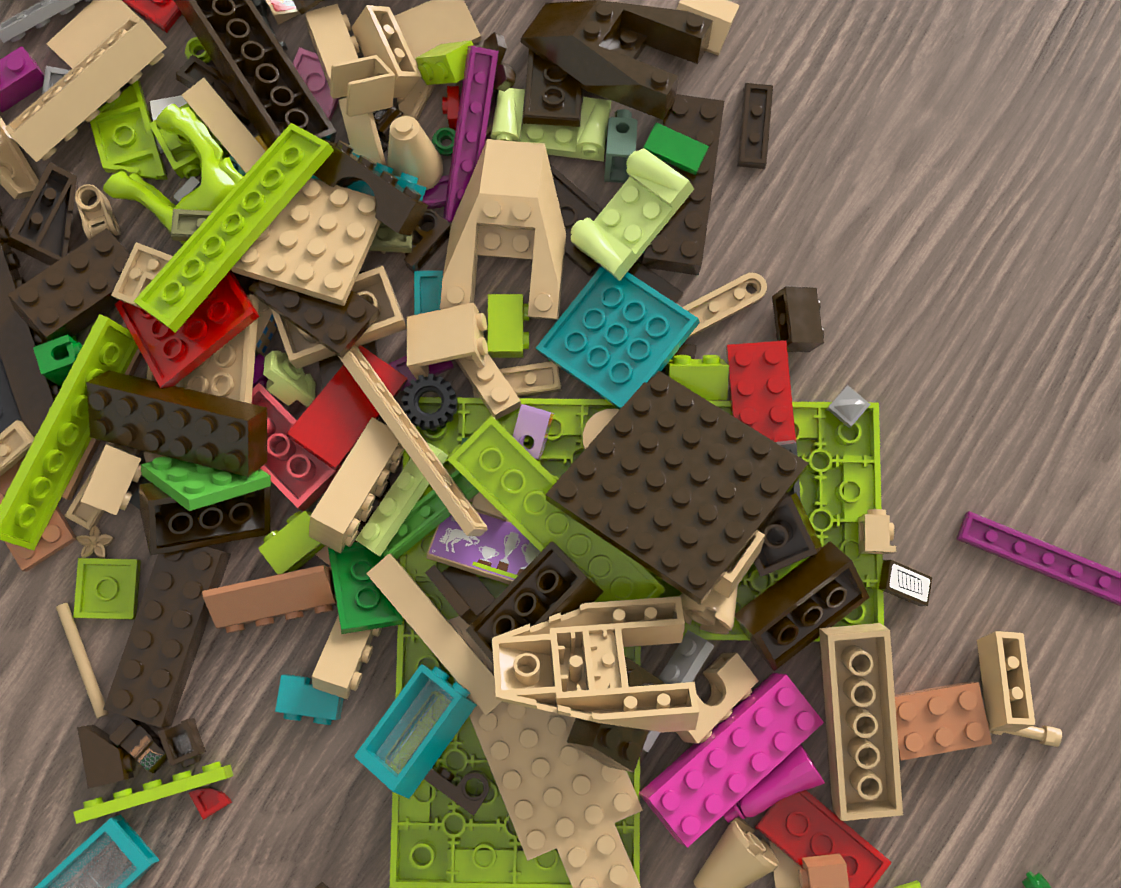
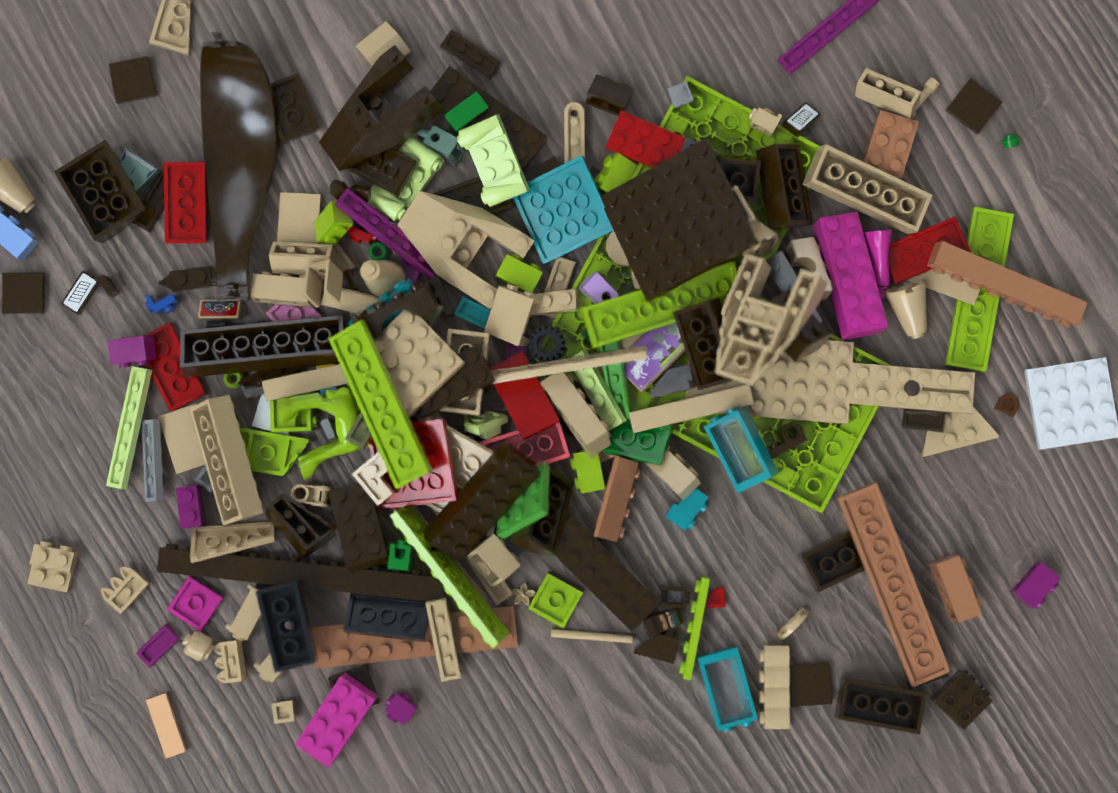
camera: 65 degrees left, 5 degrees up
(1055, 809) = (973, 106): none -> dark brown tile

